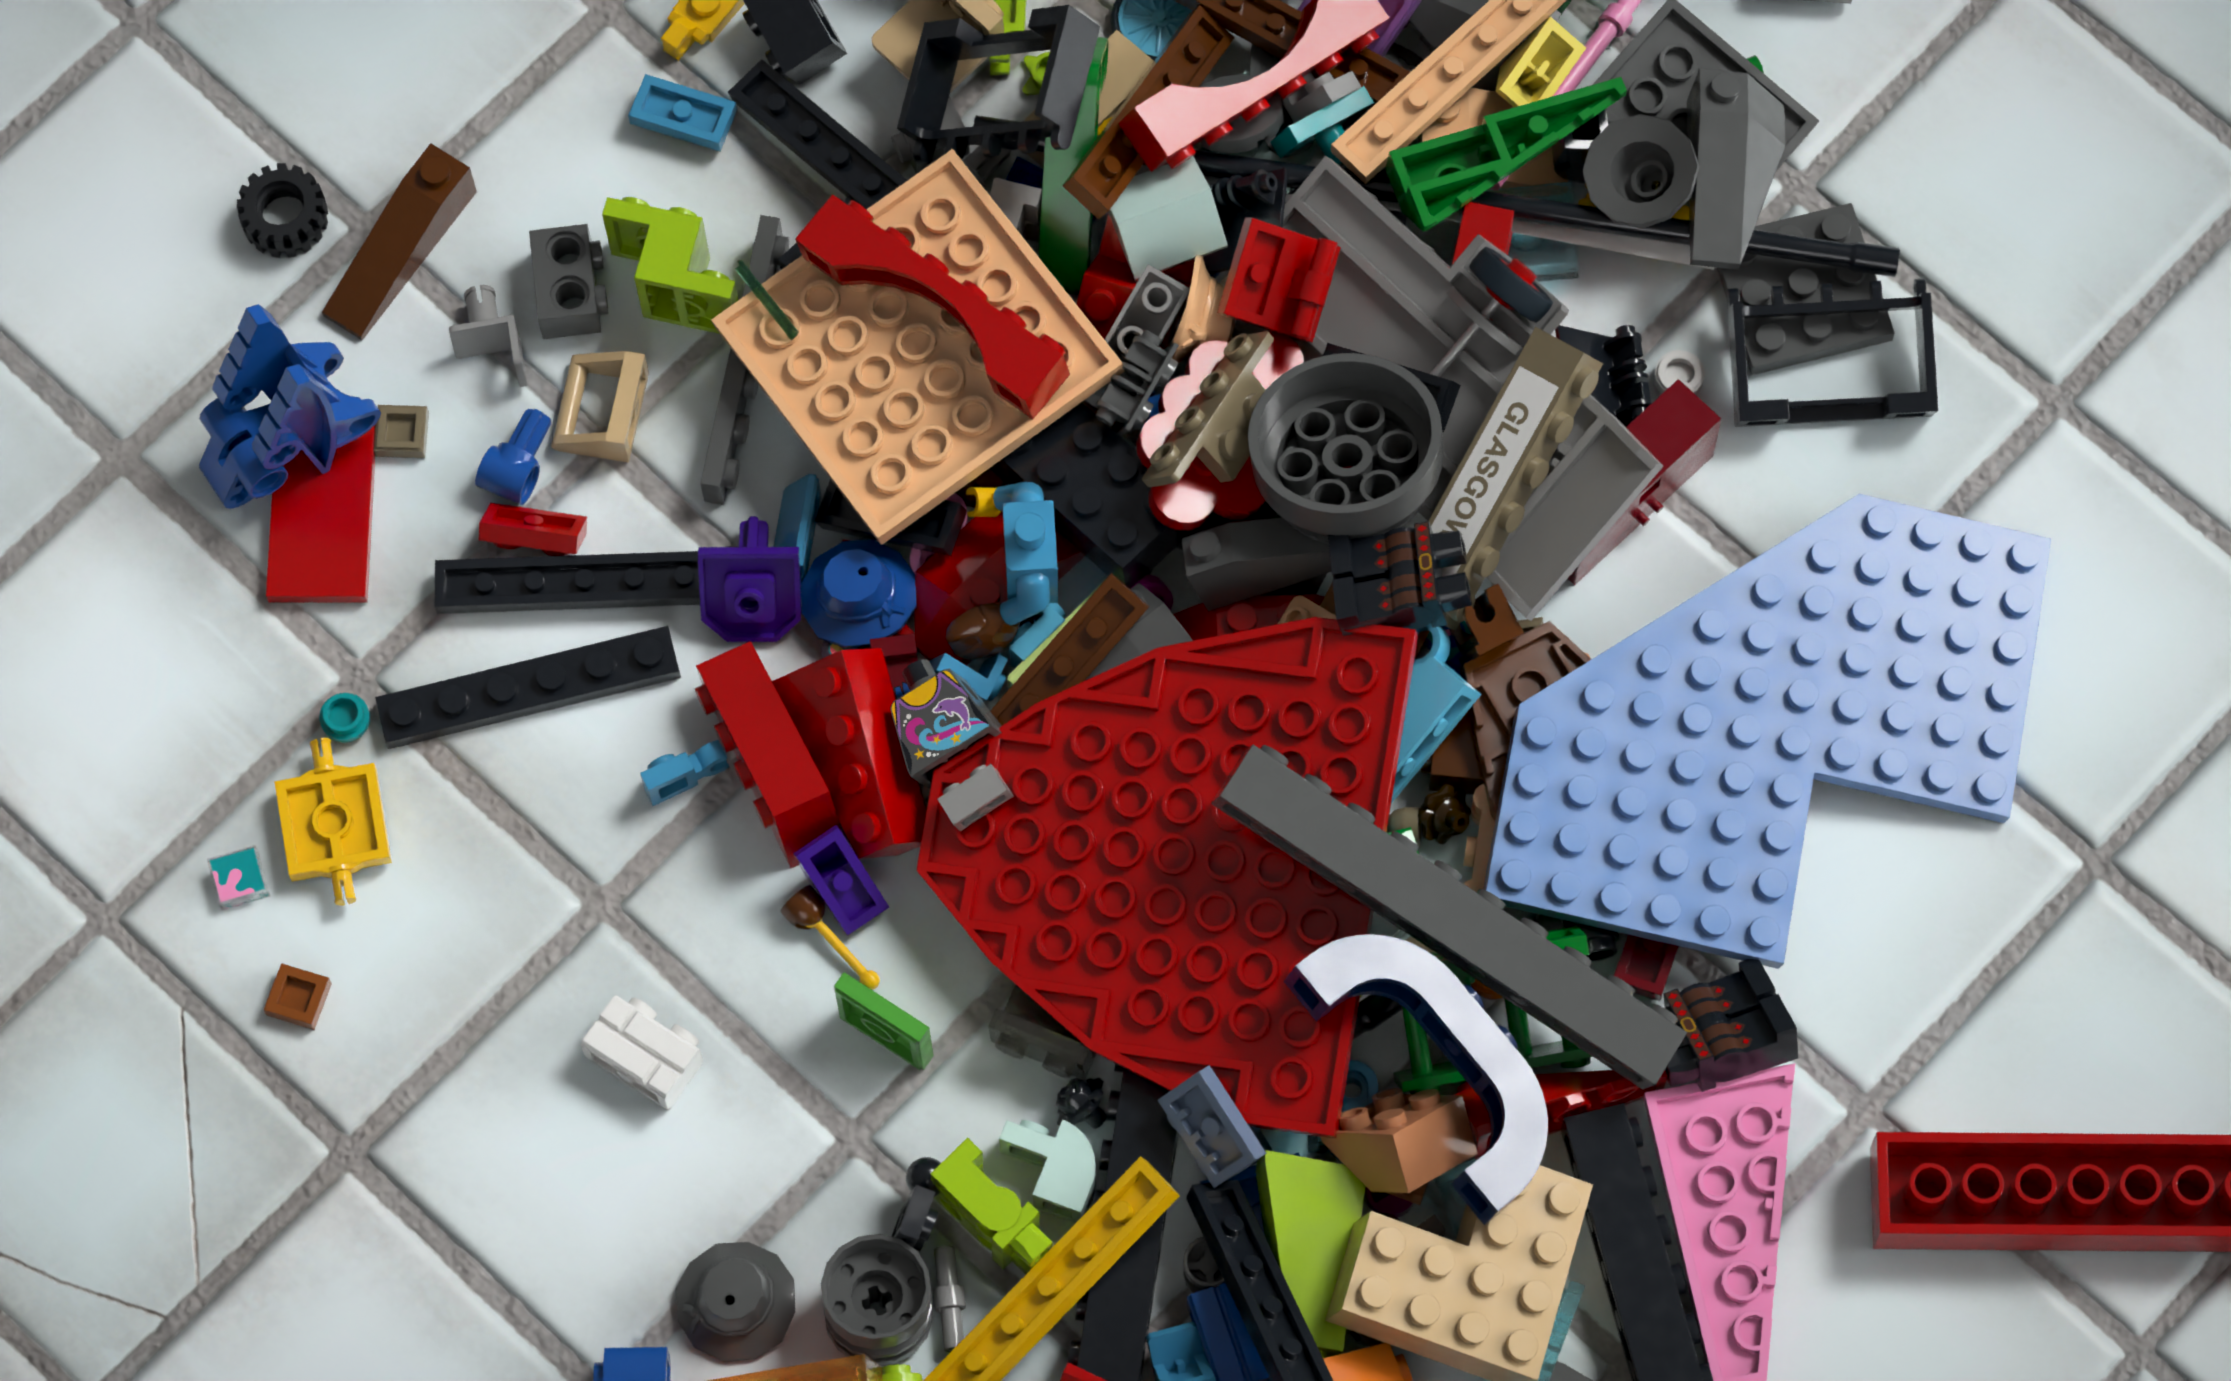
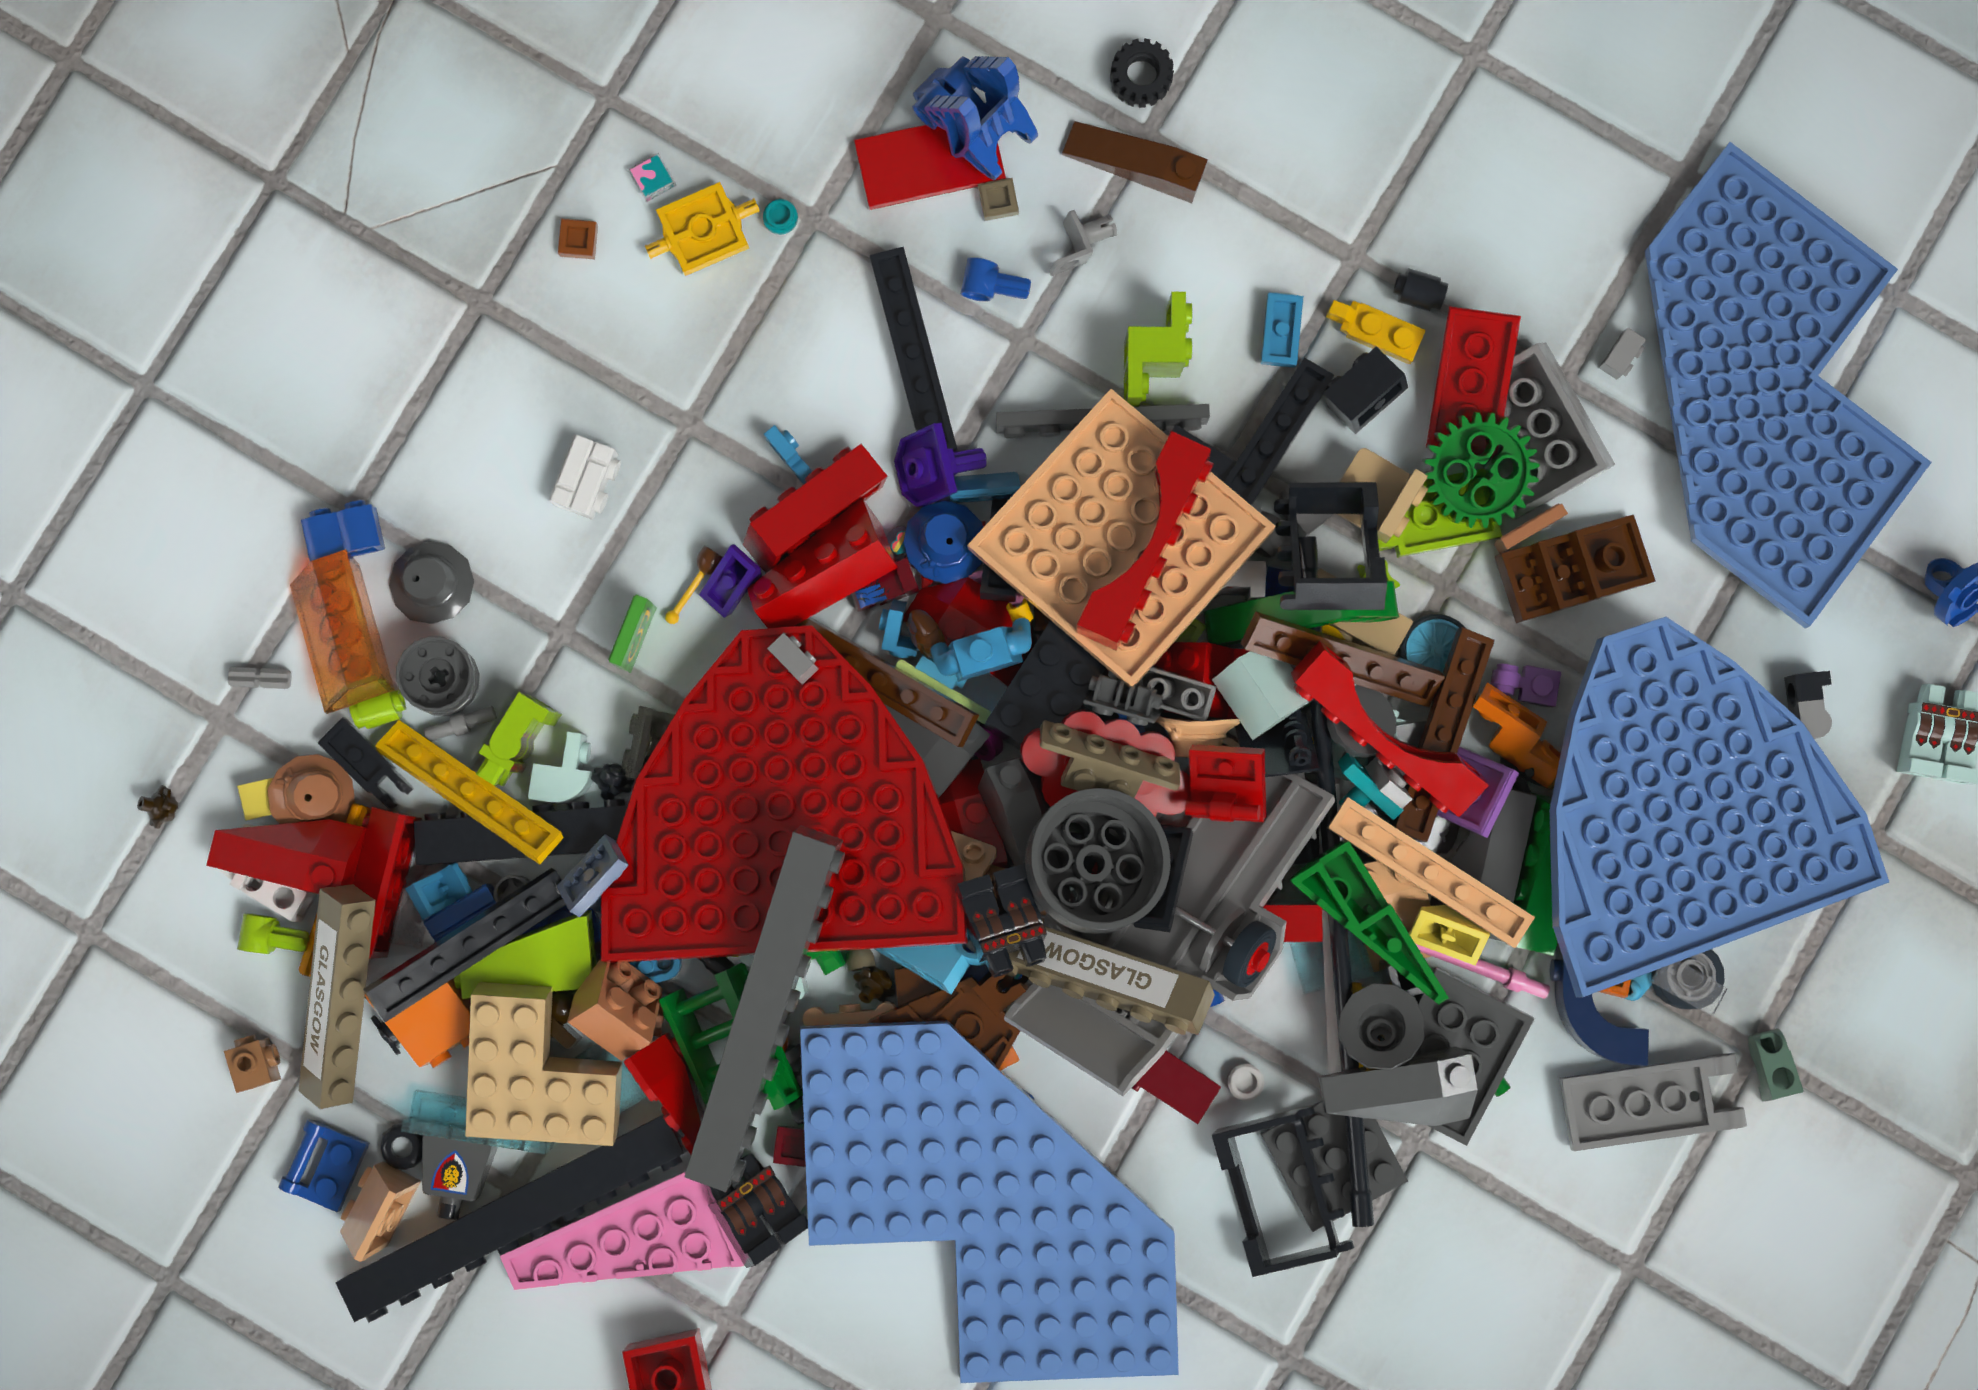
camera: 70 degrees right, 15 degrees up
(527, 687) = (830, 334): black plate -> none
(532, 528) = (943, 307): red plate -> none
(560, 282) = (1128, 274): dark grey brick -> none
(619, 439) = (1048, 346): tan tile -> none
(766, 300) = (1132, 423): clear green piece -> none
(916, 1216) = (494, 687): black plate -> none
(938, 719) = (850, 621): torso -> none
(1463, 1032) = (613, 1090): arch -> none
(1621, 380) = (1228, 1030): black hinge -> none

